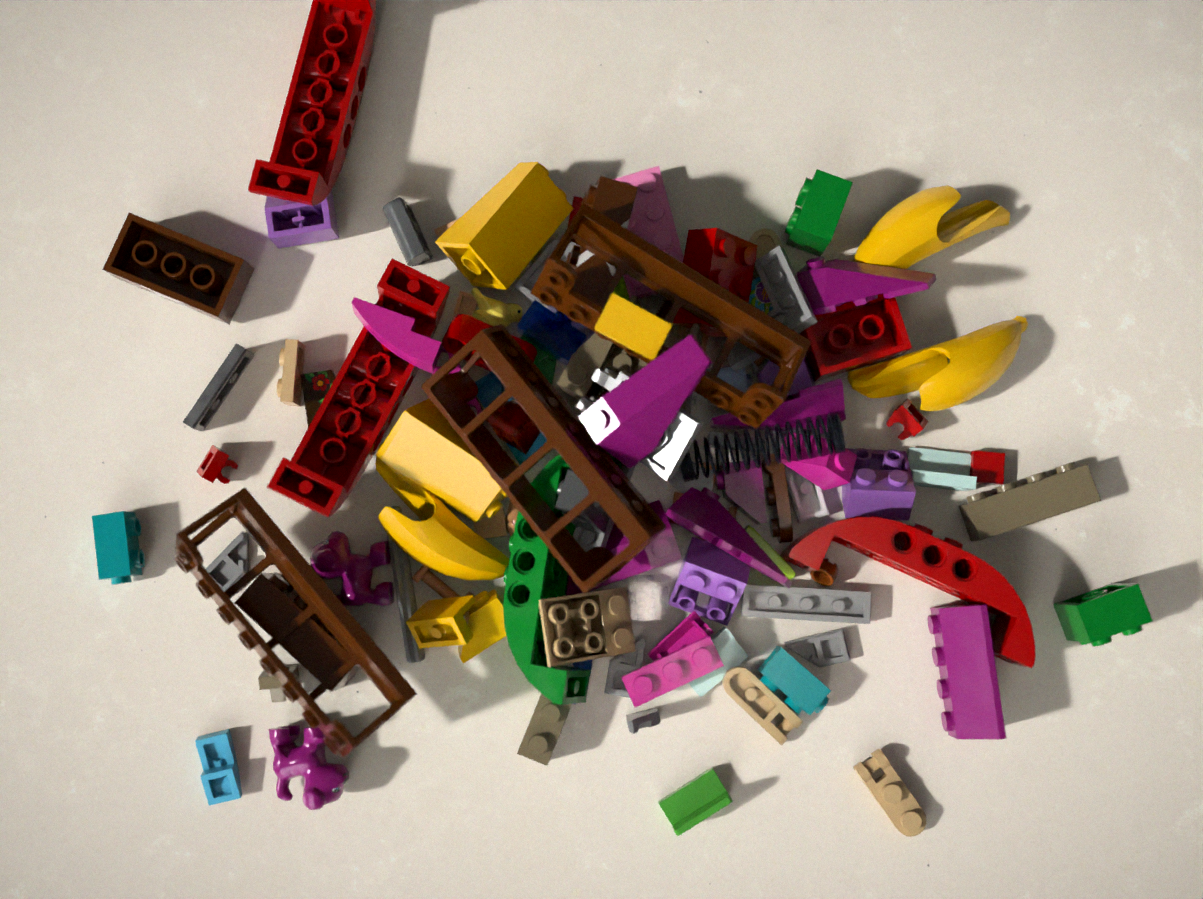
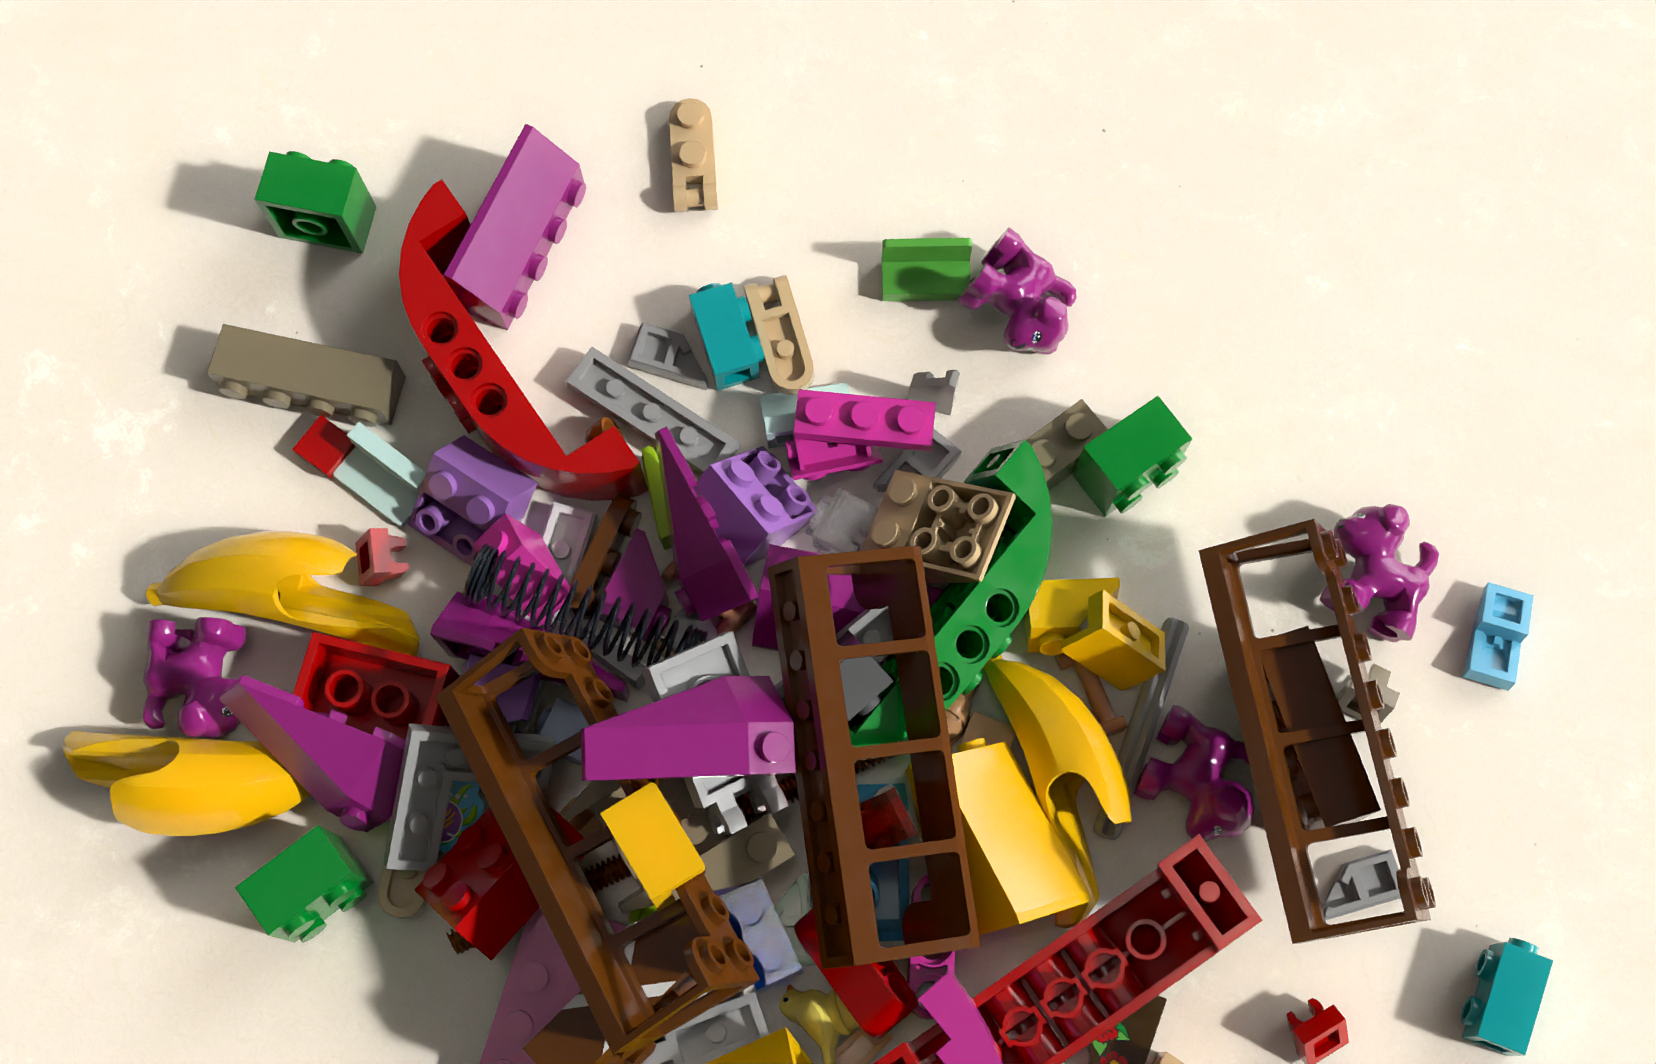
camera: 150 degrees left, 10 degrees down
(495, 747) = (1132, 457): none -> green brick
(606, 805) = (1033, 321): none -> magenta animal
(965, 288) = (192, 668): none -> magenta animal

